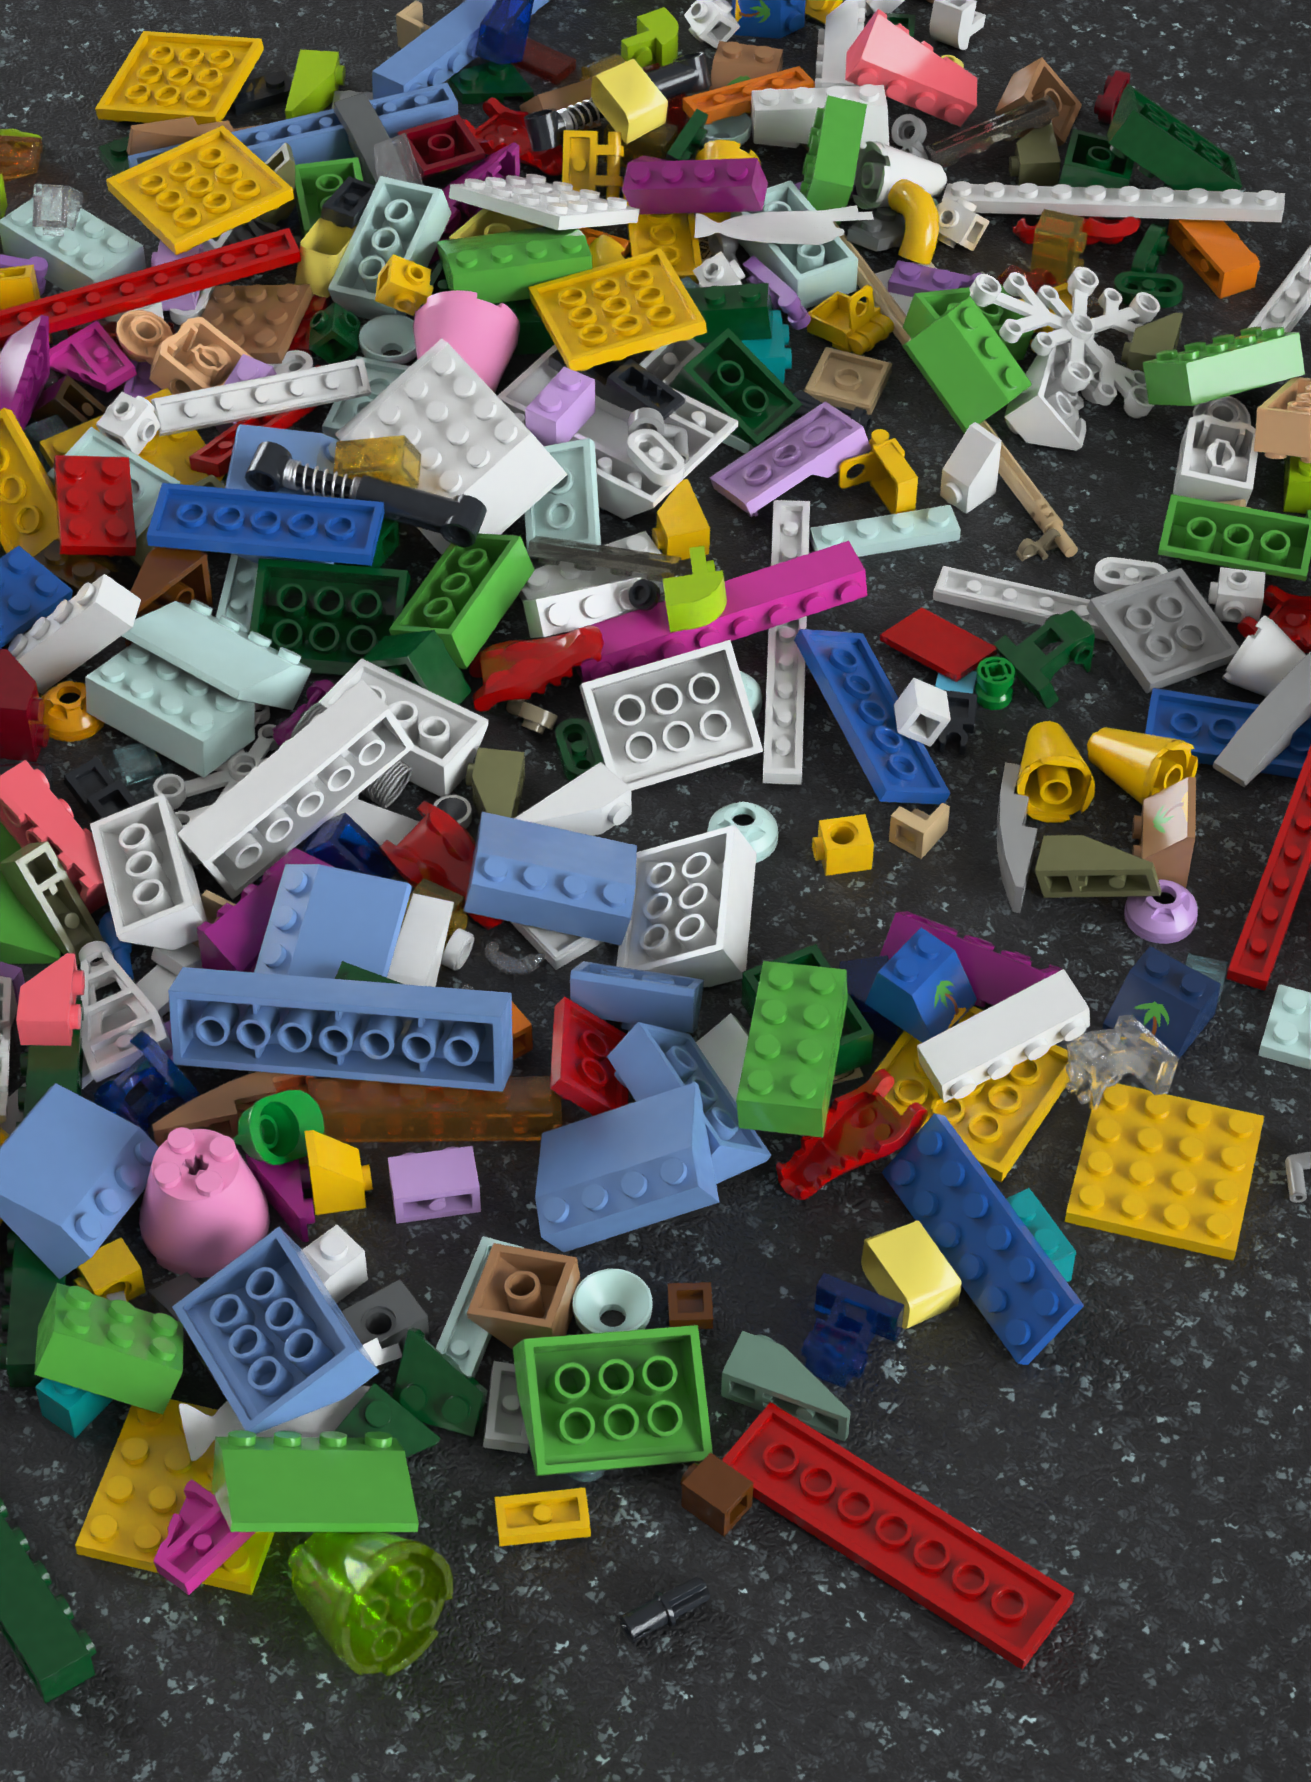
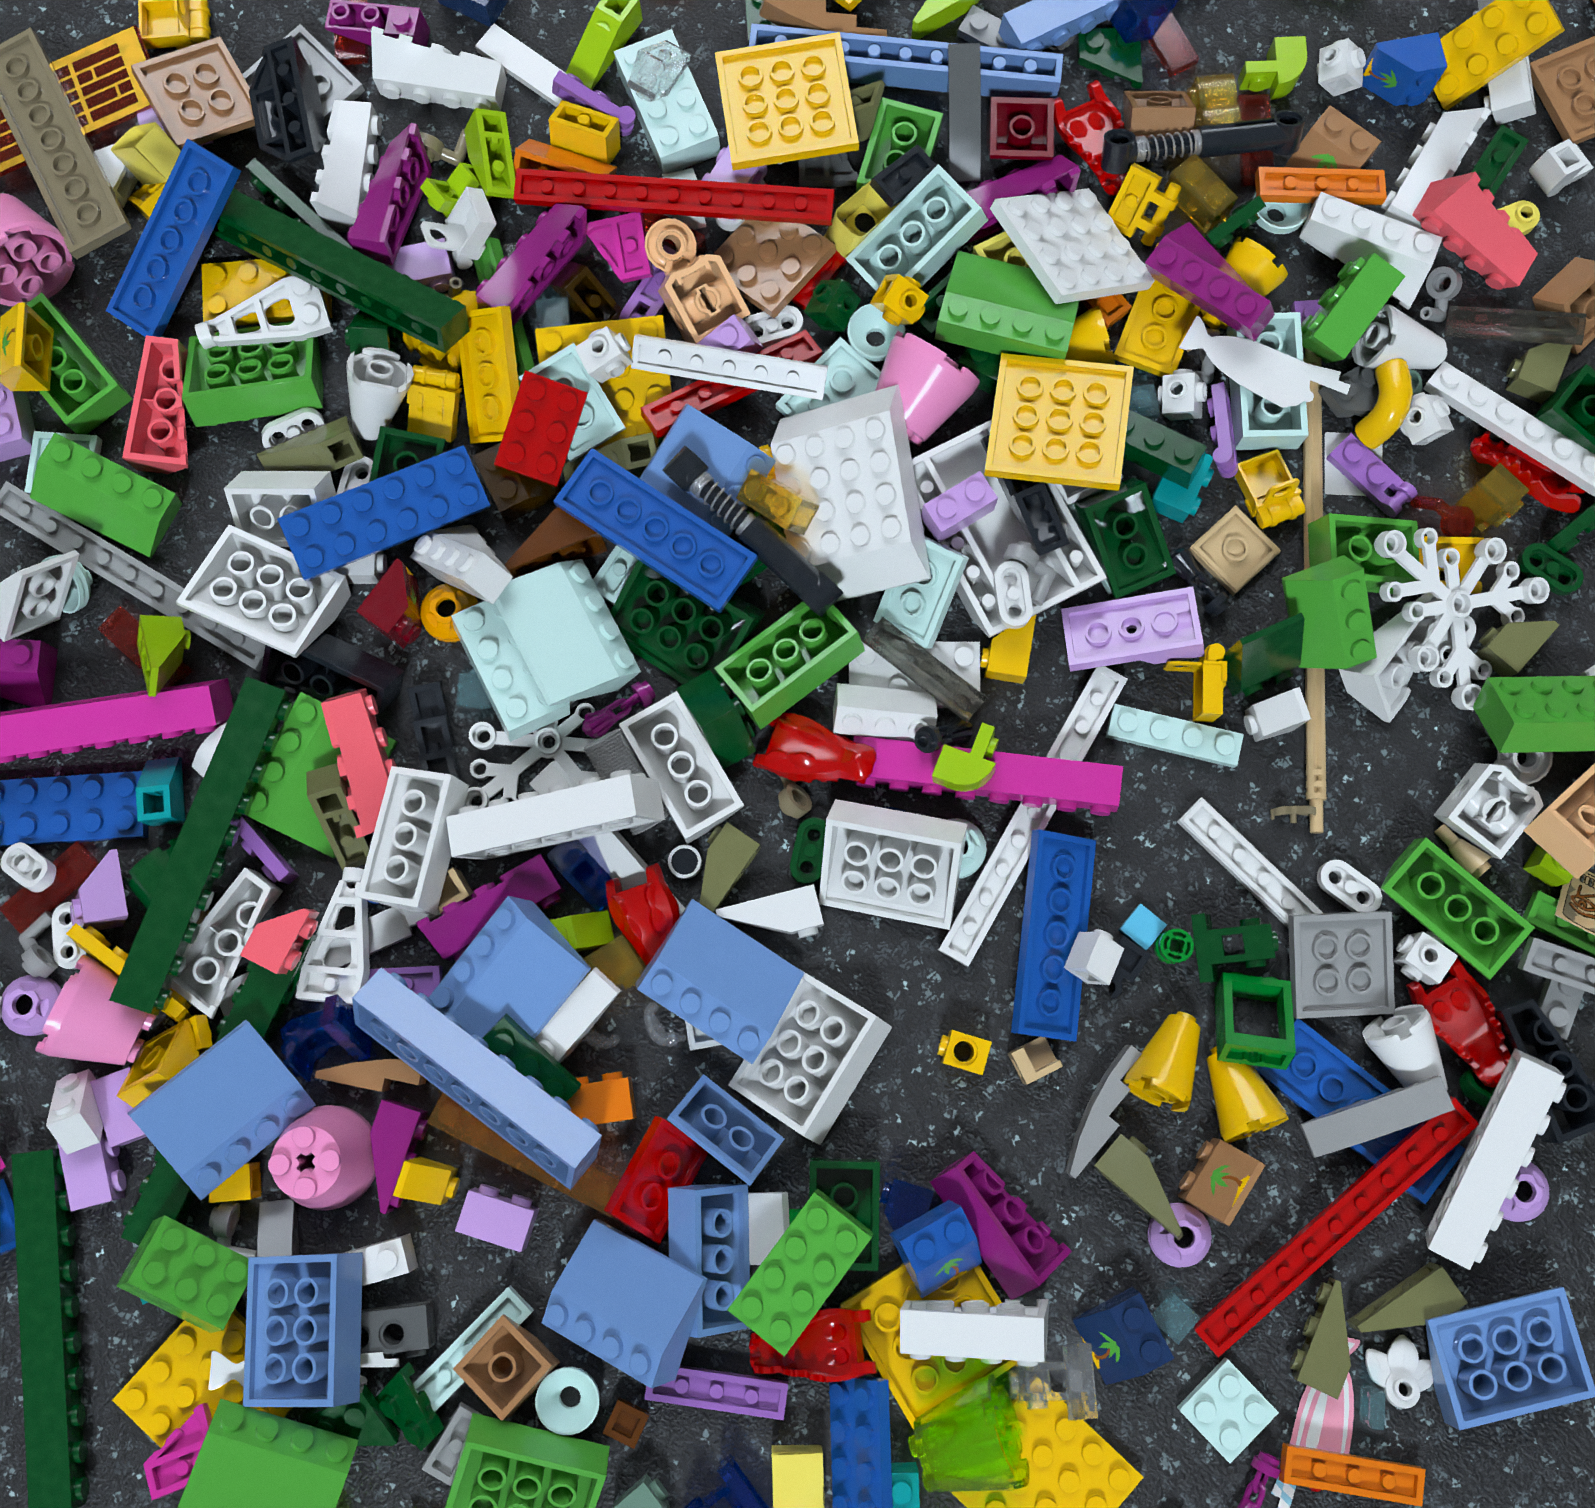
camera: 30 degrees right, 30 degrees up
(276, 1127) = (391, 1139): green piece -> none
(396, 160) = (968, 145): clear slope -> none
(457, 949) = (621, 1005): white tile -> none
(629, 100) = (1203, 160): light yellow piece -> none
(760, 834) = (878, 992): light aqua piece -> none
(770, 1235) = (724, 1392): none -> medium lavender plate
(927, 419) = (1265, 656): none -> dark green slope
(938, 644) = (1152, 879): red piece -> none
(1064, 1121) = (971, 1441): none -> clear neon green cone
(1120, 689) = (1249, 1048): none -> green window

